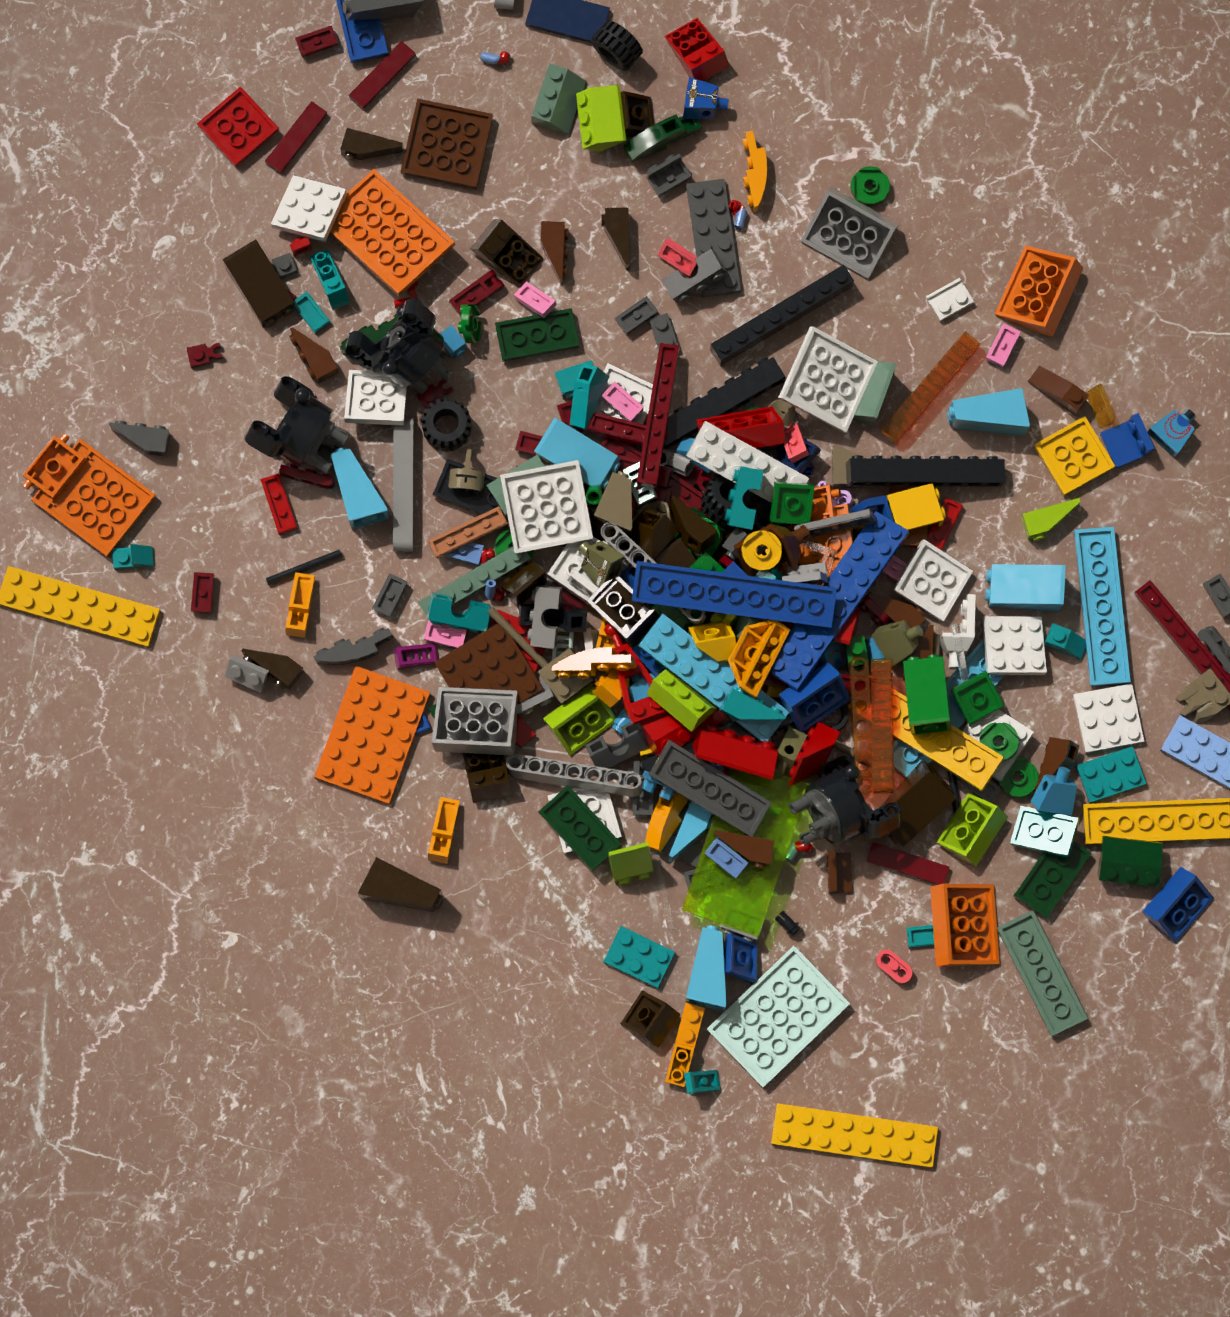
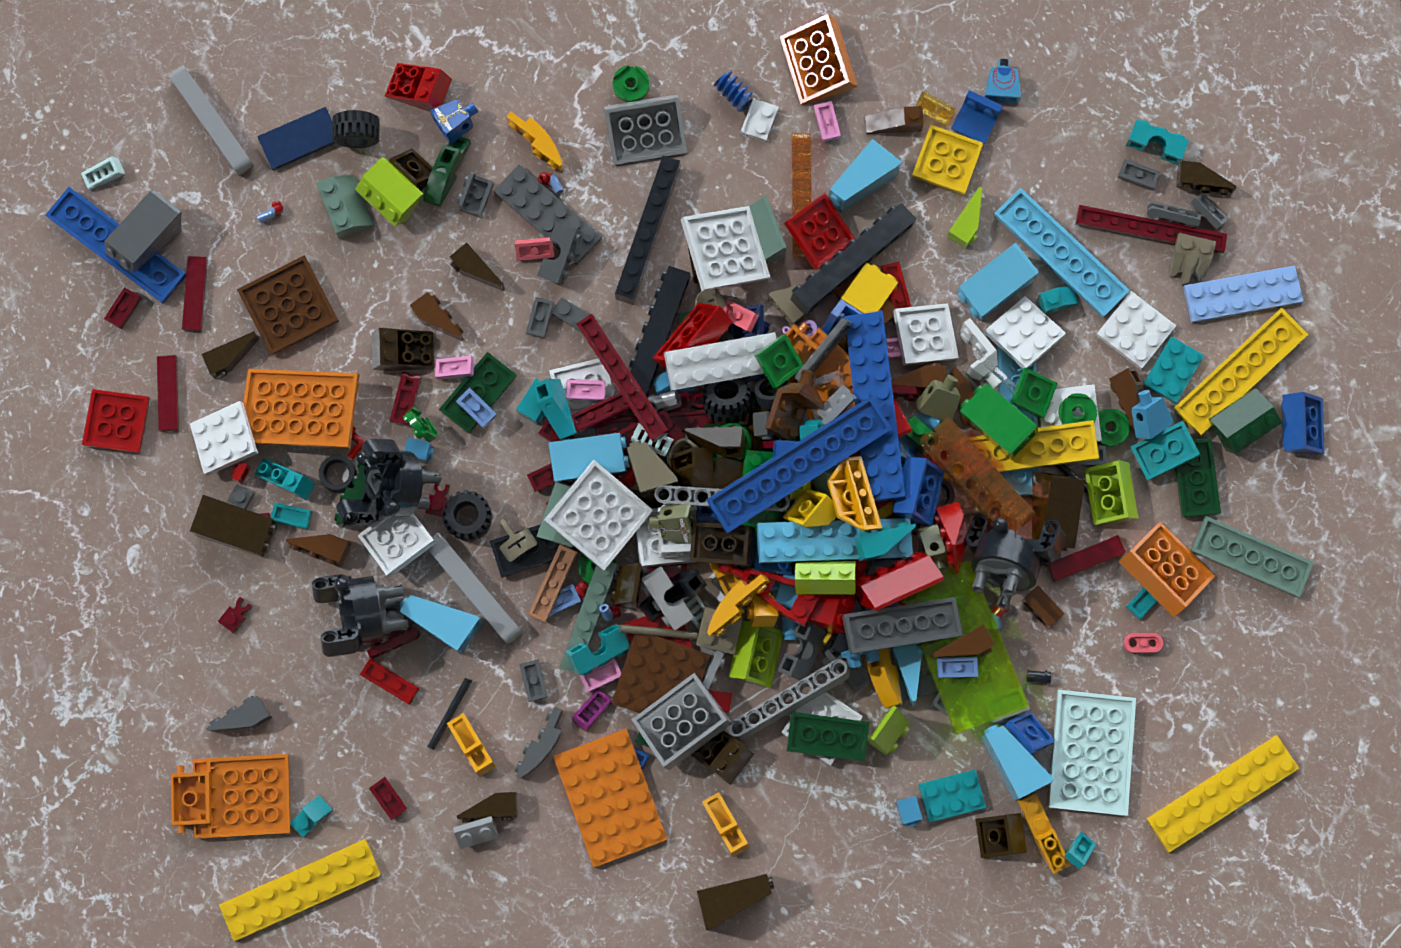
camera: 40 degrees left, 0 degrees up
(374, 293) = (323, 473): none -> black tyre
(524, 345) = (476, 408): none -> medium blue plate
(594, 498) = (626, 480): green hose -> none
(594, 939) = (909, 811): none -> dark azure brick
(739, 514) = (747, 401): teal arch -> none
(773, 551) = (800, 409): yellow plate -> none
(917, 427) = (819, 231): none -> red plate
(947, 258) = (733, 91): none -> blue piece

